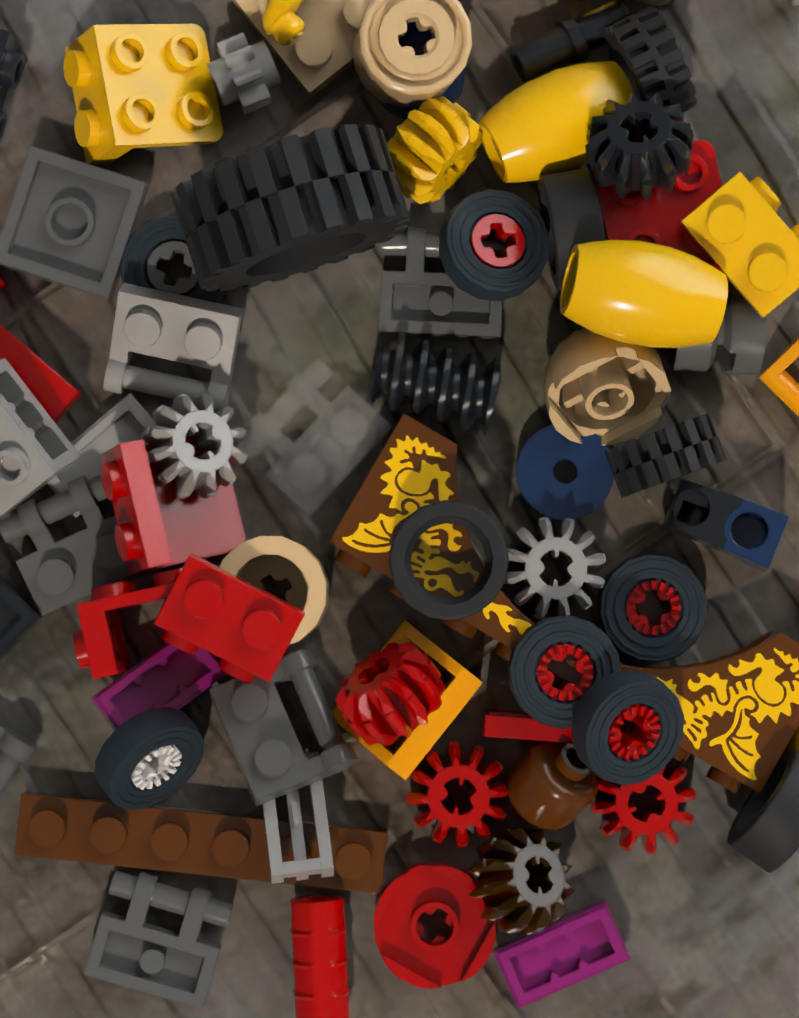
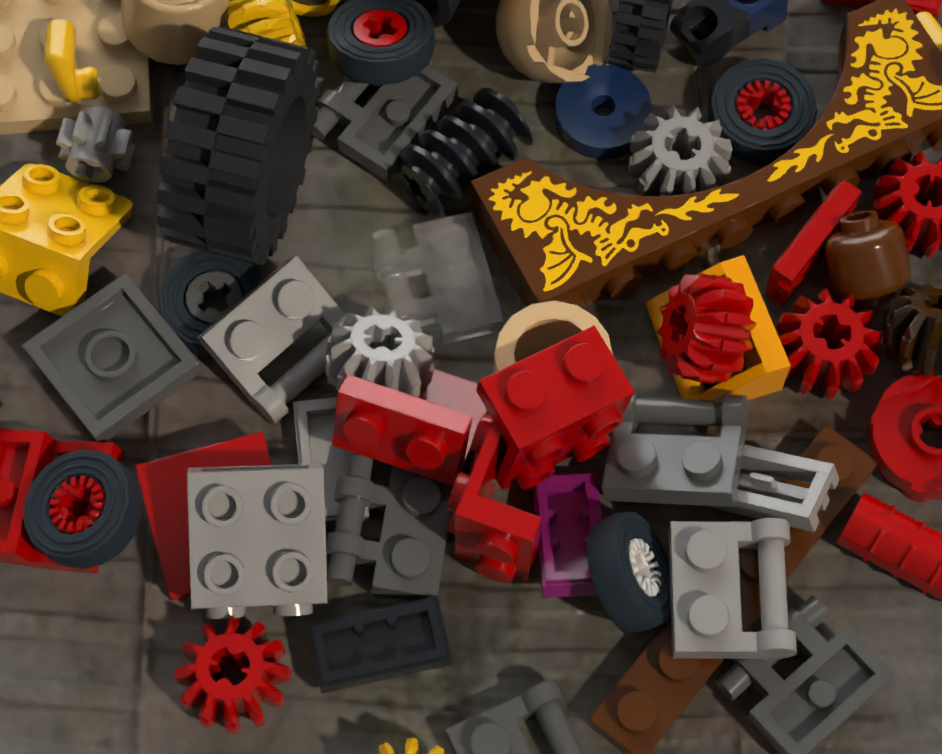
camera: 55 degrees left, 20 degrees down
(174, 826) = (708, 595): none -> light grey plate
(494, 550) = (615, 166): black tyre -> none
(554, 640) = (783, 153): black bush -> none
(621, 755) = (857, 151): black bush -> none

